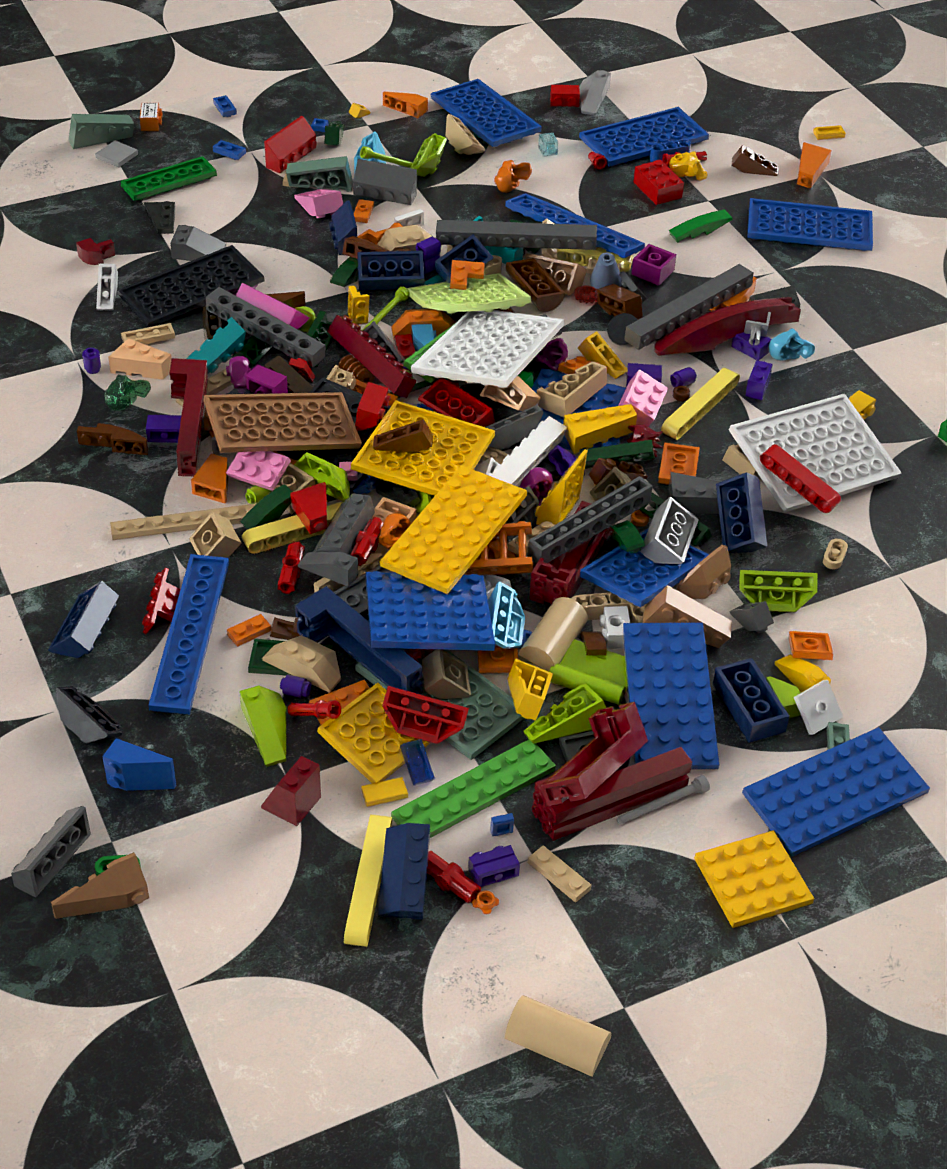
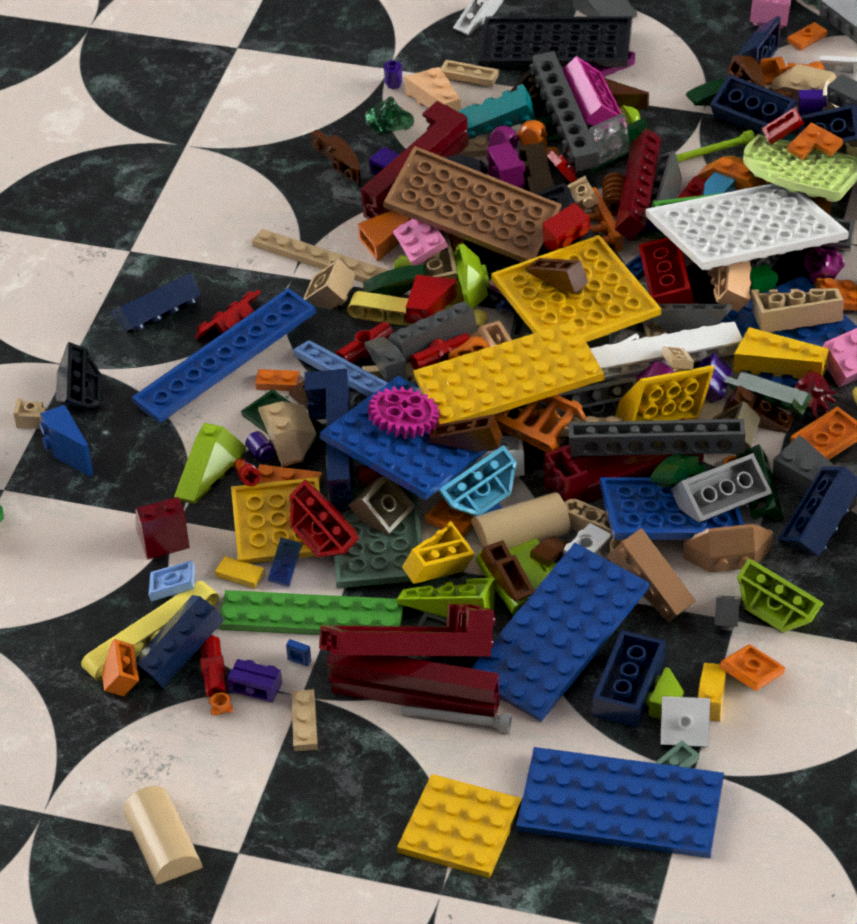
camera: 45 degrees right, 0 degrees up
(72, 766) = (28, 414): none -> tan brick
(256, 354) = (535, 132): none -> orange head
(294, 593) = (325, 360): none -> medium blue plate
(317, 327) = (610, 138): none -> clear plate
(345, 829) = (171, 580): none -> light blue tile
(358, 306) = (682, 130): yellow bracket -> none
(385, 923) = (120, 668): none -> orange slope
(415, 593) = (403, 412): none -> dark pink gear
(430, 272) = (783, 126): none -> red plate
(476, 584) = (469, 434): none -> reddish brown slope
(555, 456) = (677, 358): none -> tan plate
(594, 672) = (507, 571): none -> reddish brown slope

